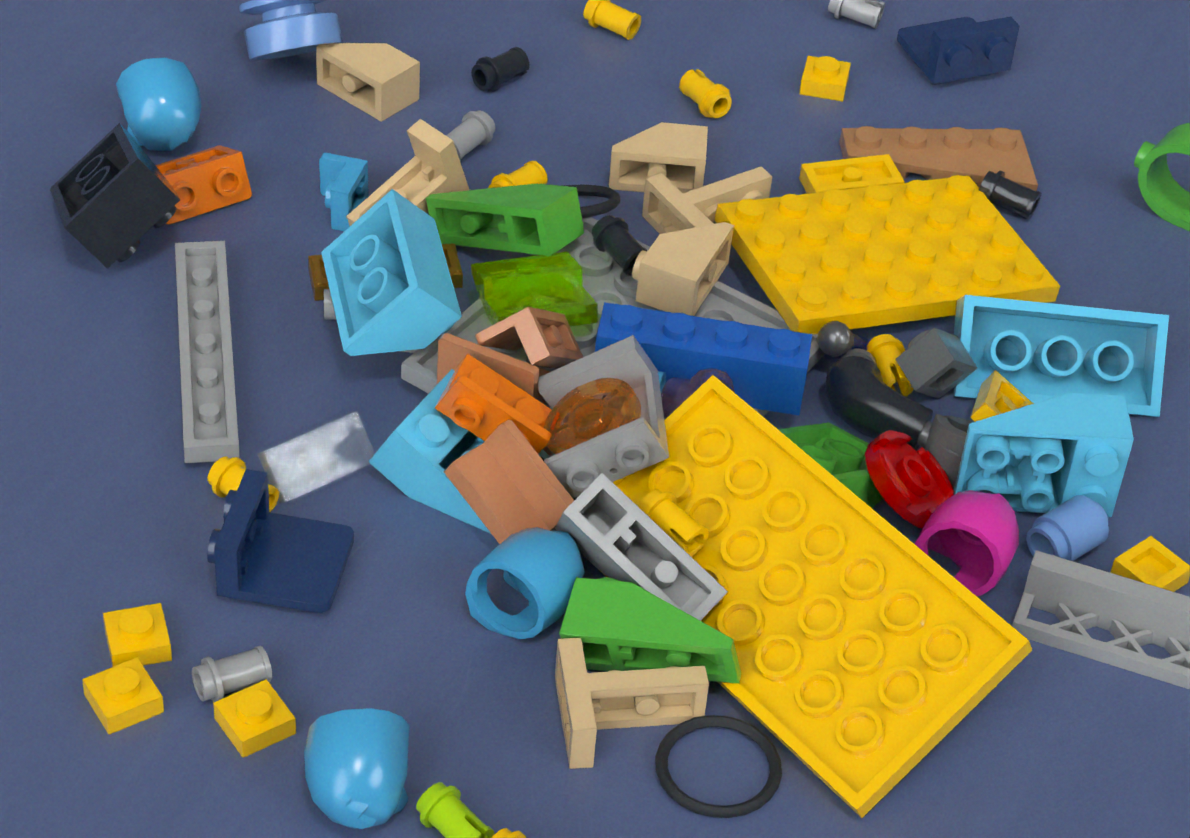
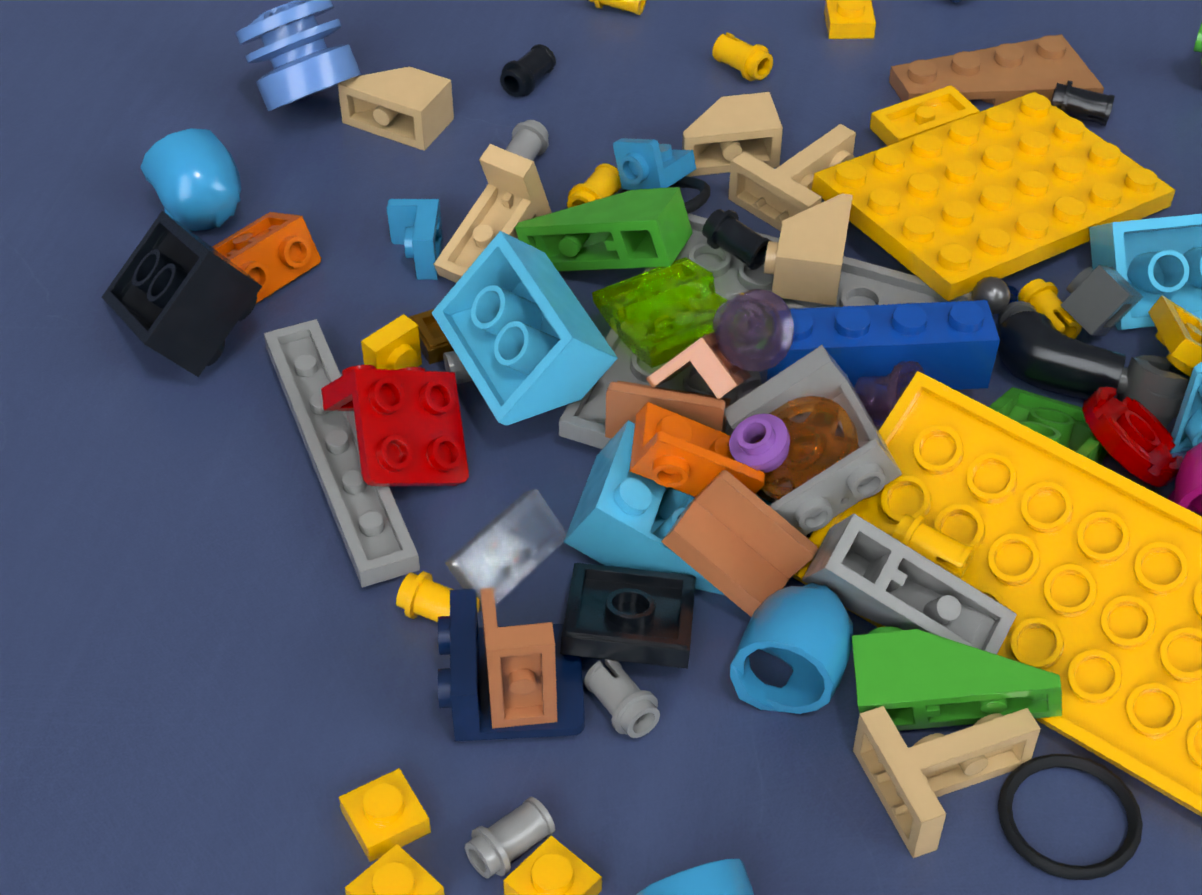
camera: 10 degrees left, 5 degrees up
(264, 338) = (404, 424): none -> red bracket
(277, 539) = (519, 669): none -> nougat panel
(280, 281) = (393, 345): none -> yellow plate
(373, 600) = (631, 708): none -> light grey pin
(400, 529) = (629, 615): none -> black plate
(555, 407) = (768, 452): none -> medium lavender plate
(568, 167) = (650, 164): none -> dark azure bracket
(583, 313) = (754, 330): none -> clear purple piece

